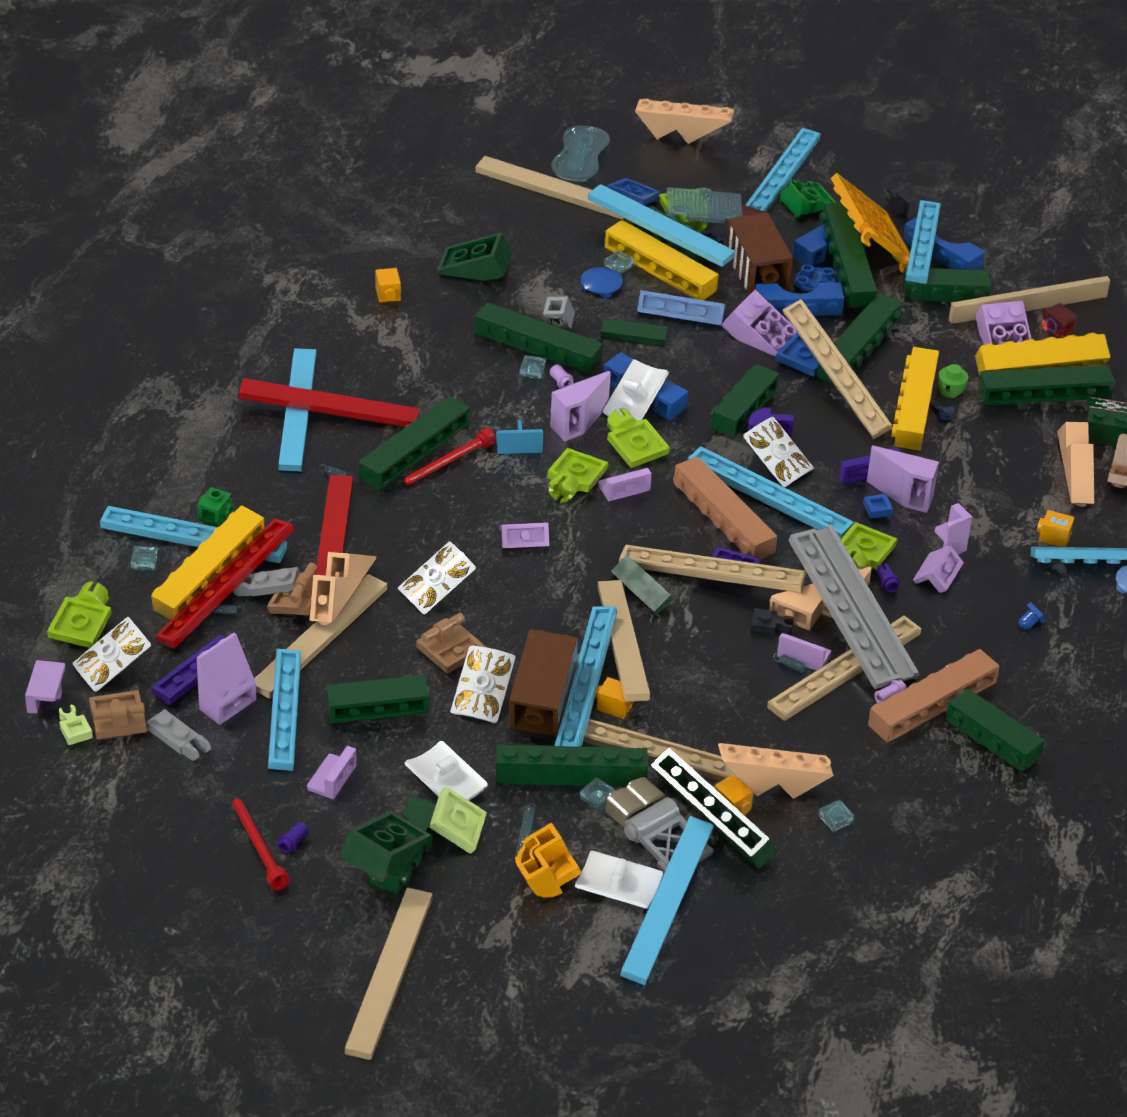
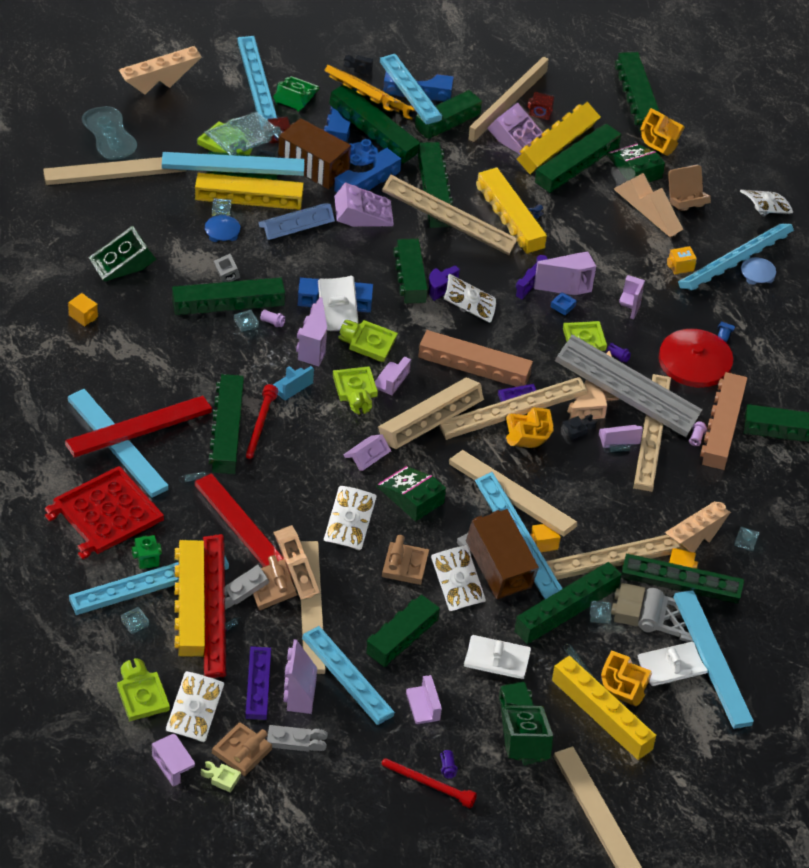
camera: 40 degrees left, 5 degrees up
(219, 457) = (106, 511): none -> red plate
(458, 819) = (540, 684): yellowish green tile -> none
(500, 877) = (603, 707): none -> yellow brick
(529, 592) = (413, 491): none -> dark green slope
(622, 531) = (431, 412): none -> tan brick
(634, 332) = (283, 256): dark green tile -> none
(635, 191) = (179, 144): blue plate -> none
(642, 584) = (479, 445): tile -> none
(706, 595) = (529, 429): none -> light orange brick
(773, 494) = (493, 331): medium azure plate -> none
(798, 356) = (408, 217): blue plate -> none
(940, 568) = (640, 328): lavender panel -> none
(955, 378) = (519, 183): bright green piece -> none
(971, 621) = (695, 357): none -> red dish

